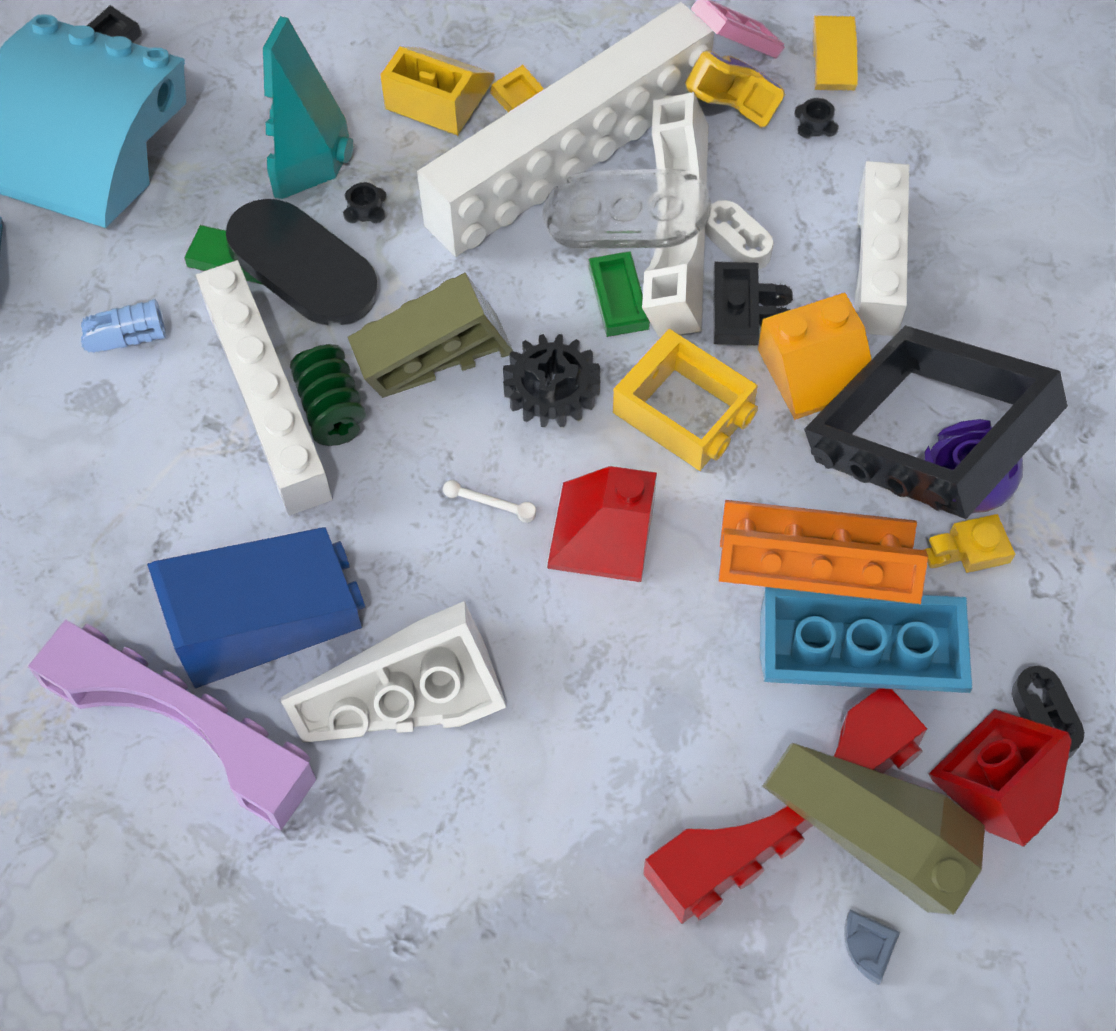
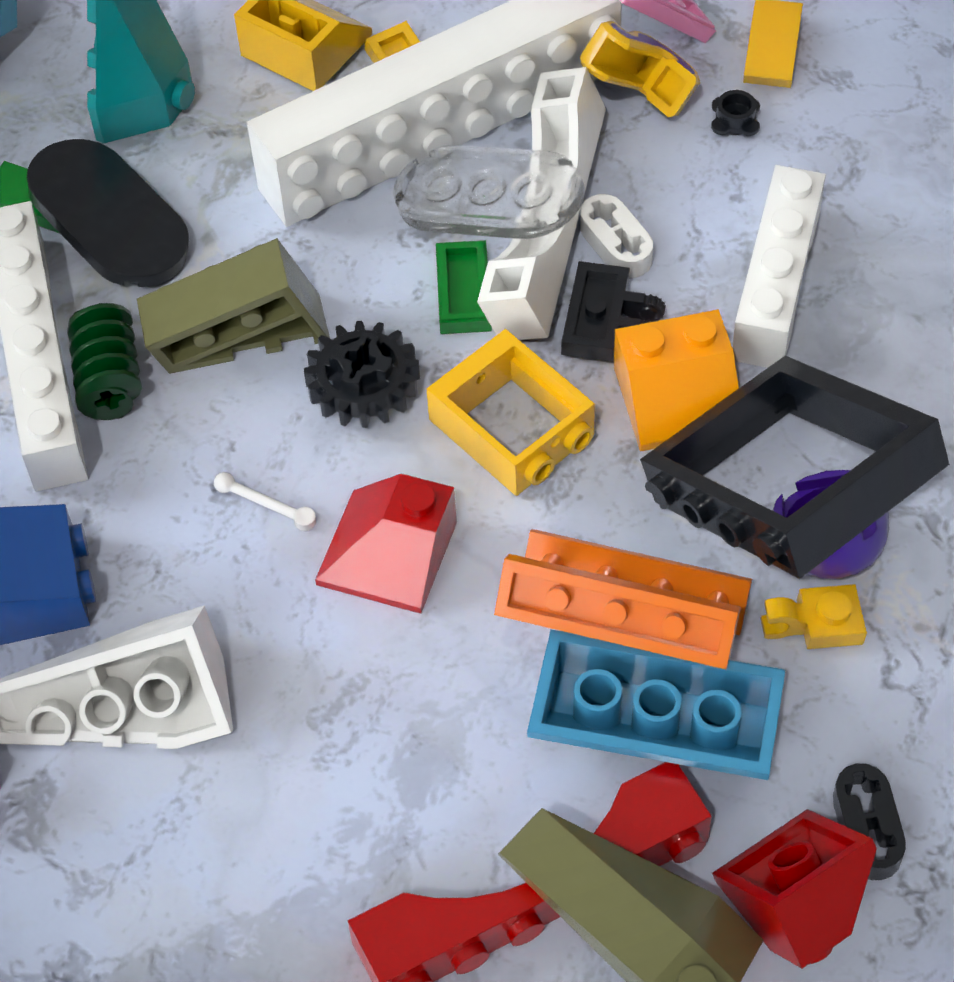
camera: 10 degrees right, 5 degrees down
(361, 195) = (194, 156): black plate -> none

